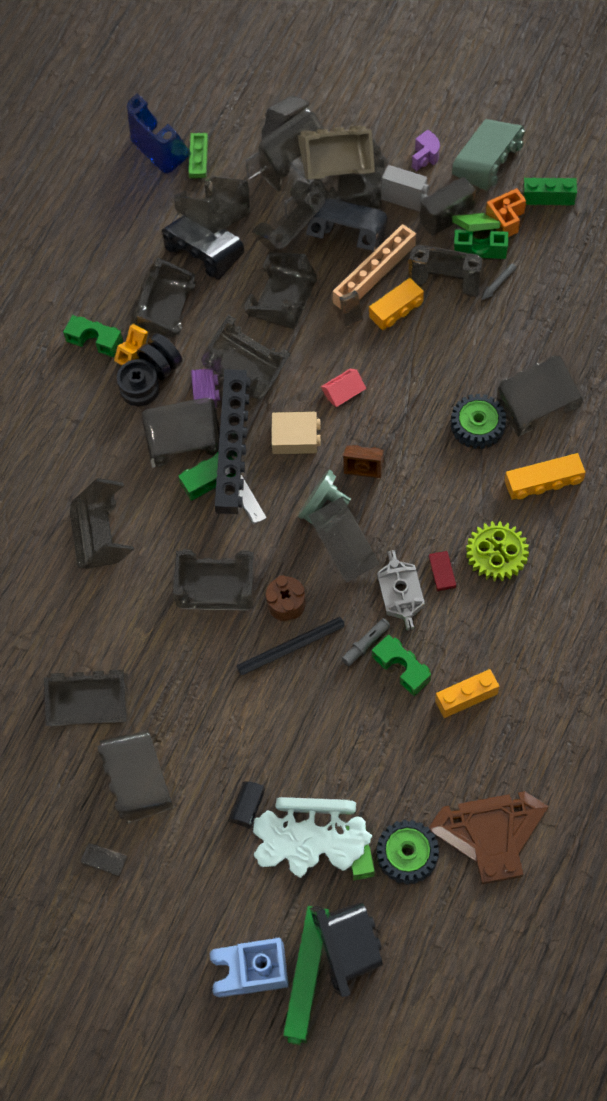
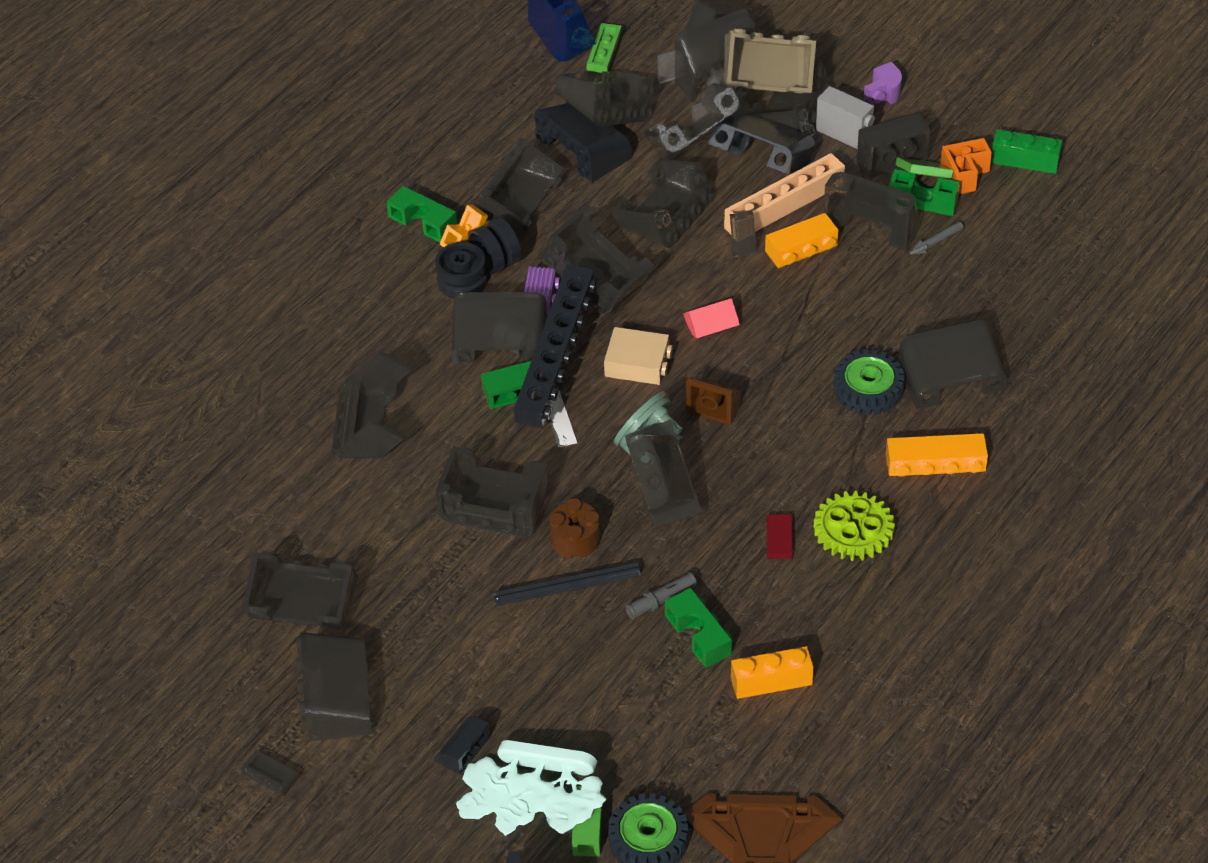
camera: 10 degrees right, 15 degrees down
(400, 603) = (717, 561): light grey plate -> none
(486, 151) = (959, 93): sand green windscreen -> none

